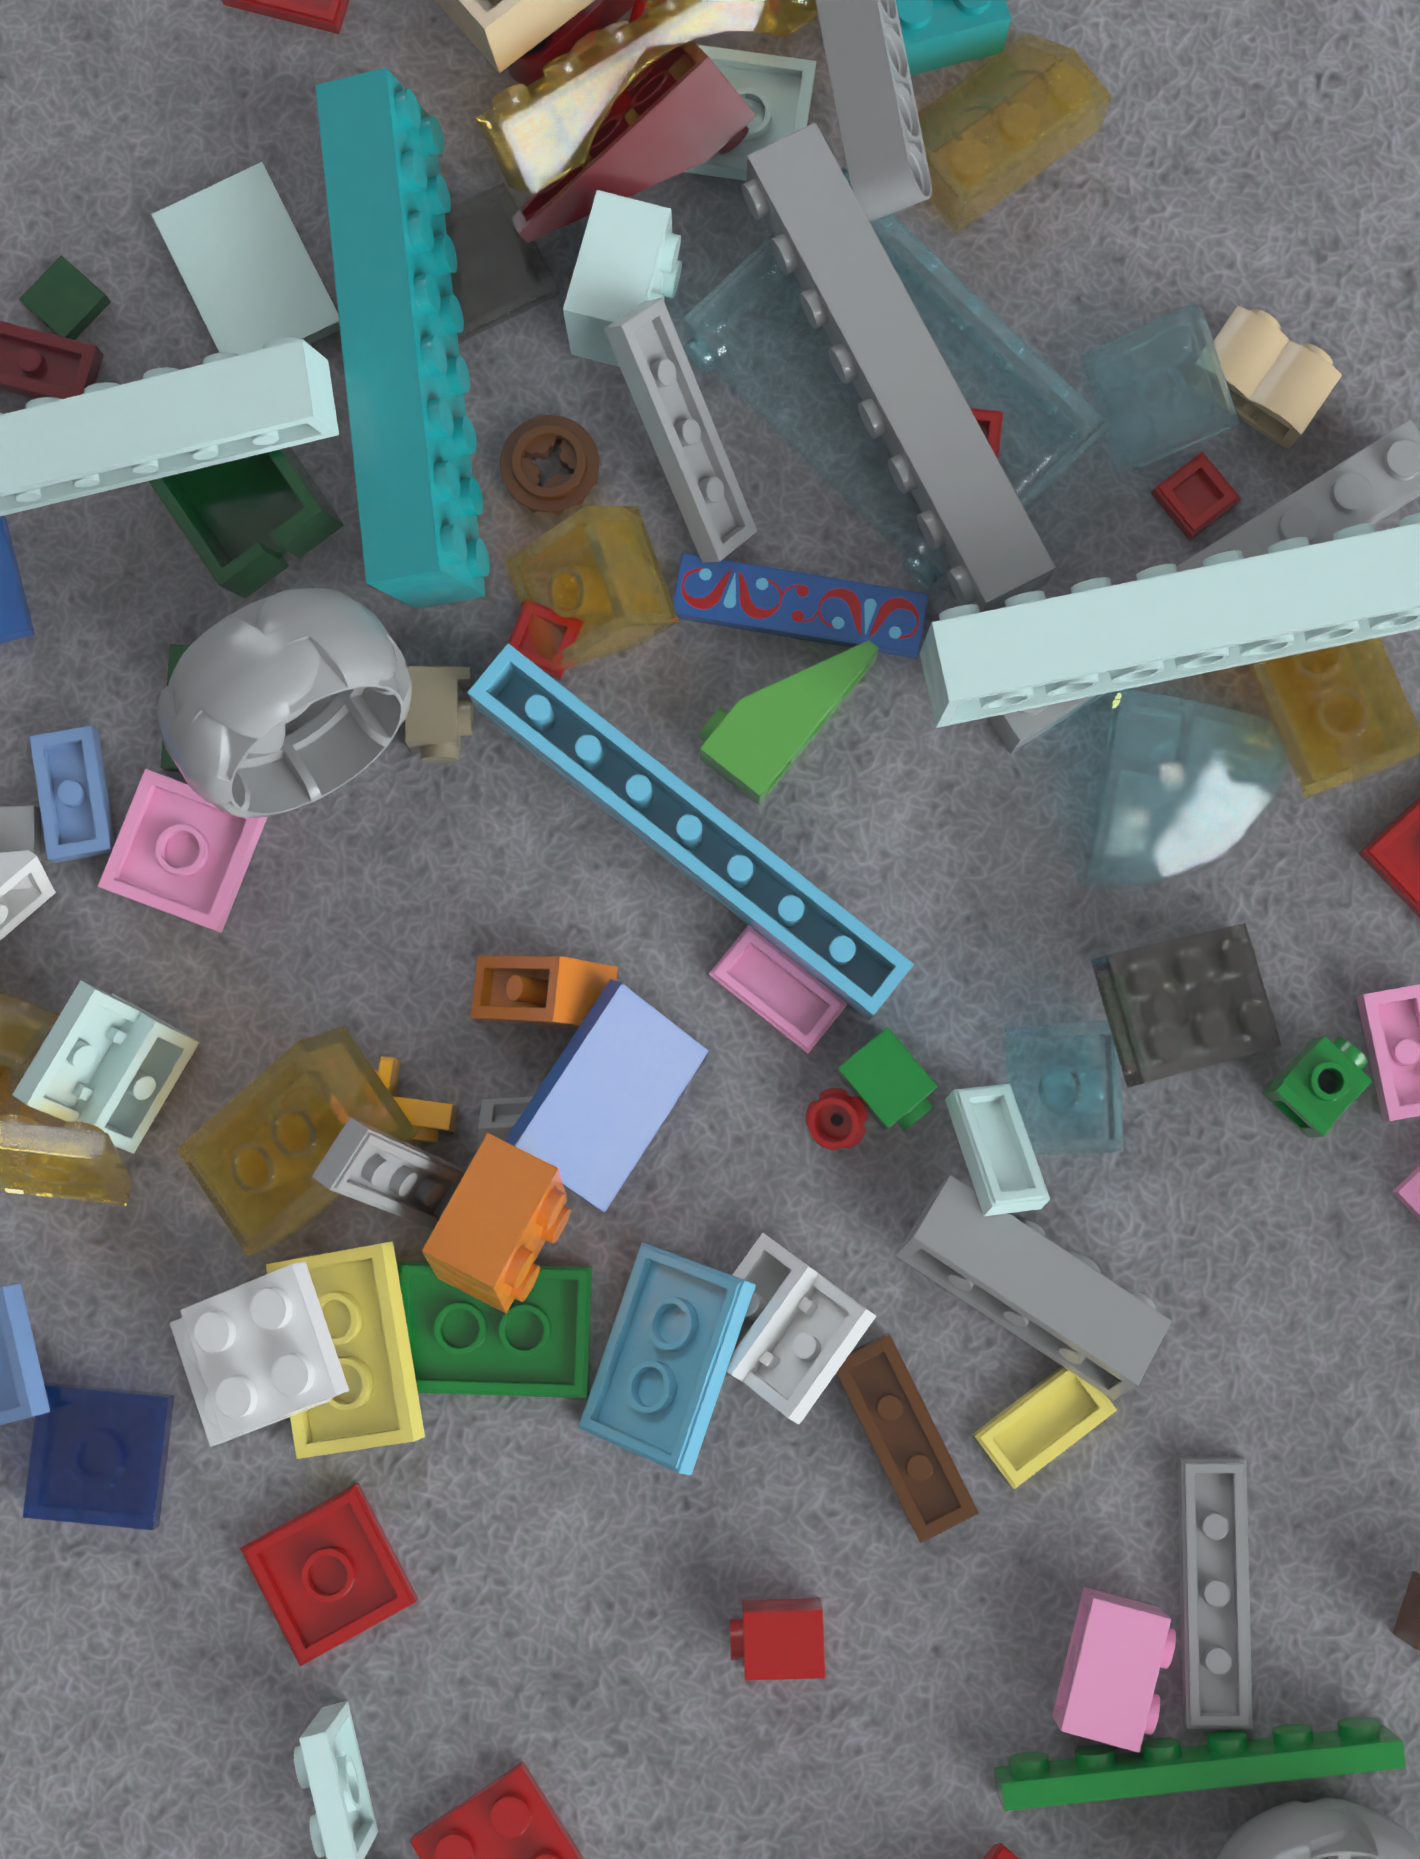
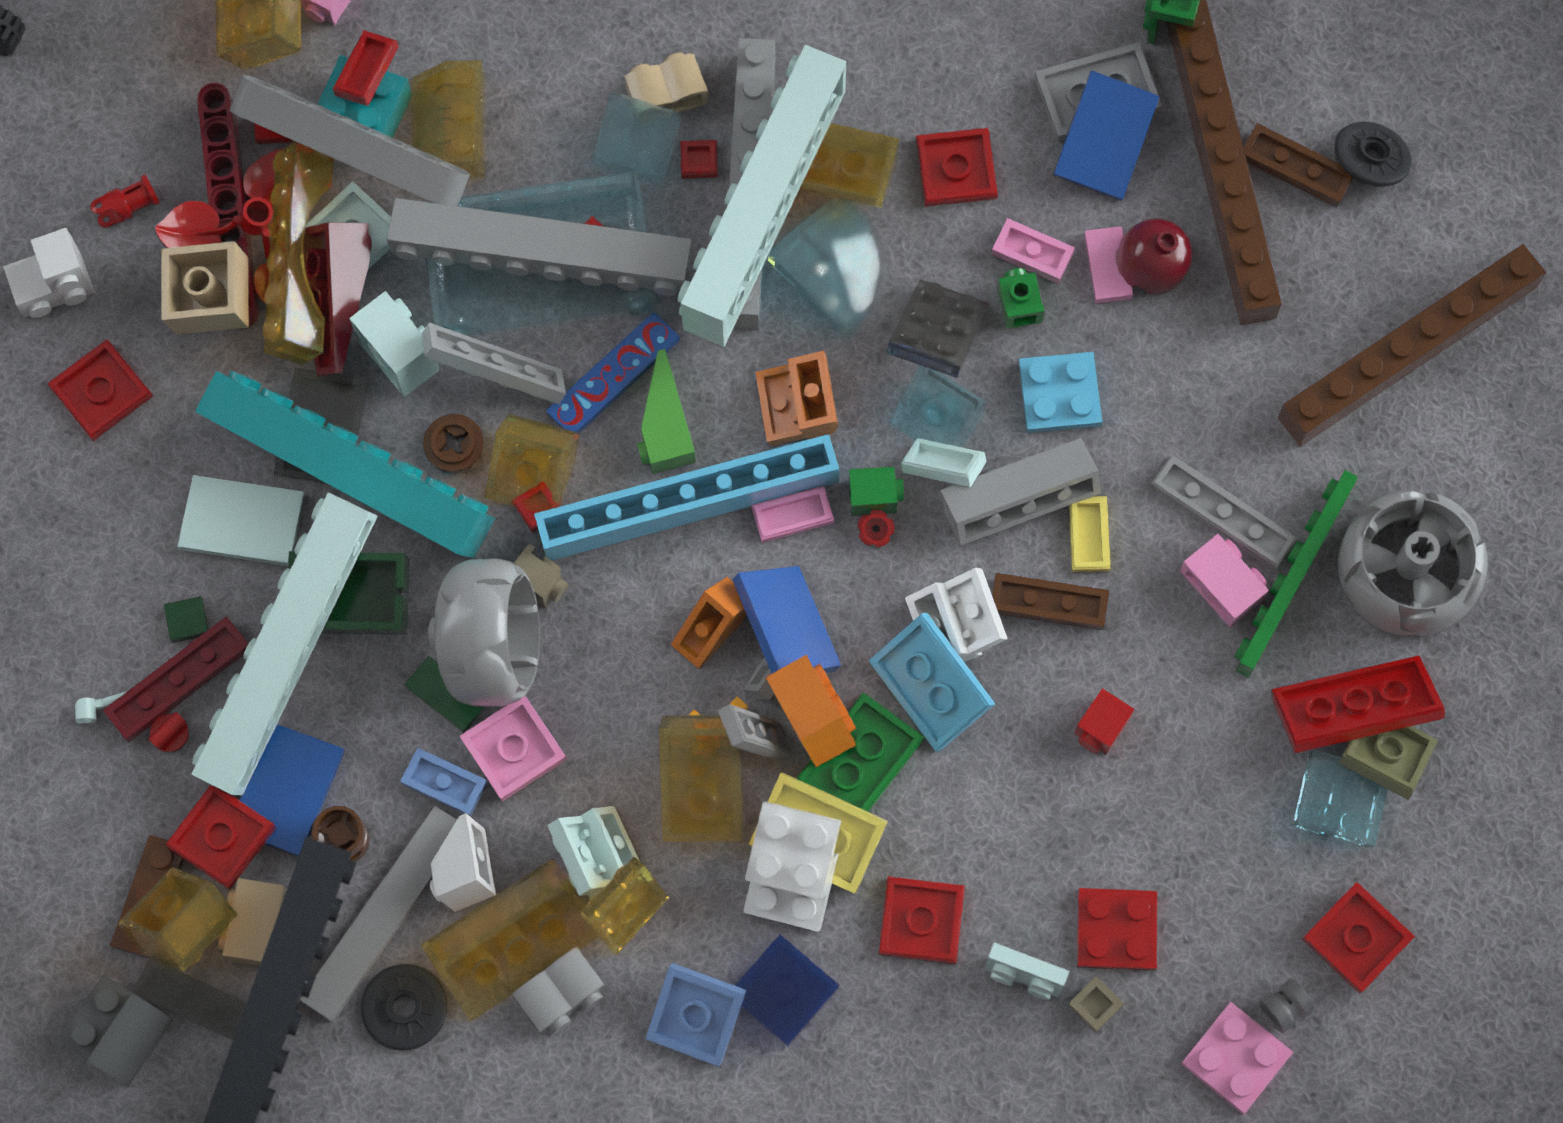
camera: 55 degrees left, 10 degrees down
(941, 880) = (797, 399): none -> orange brick
(1223, 1236) = (1060, 392): none -> medium azure plate

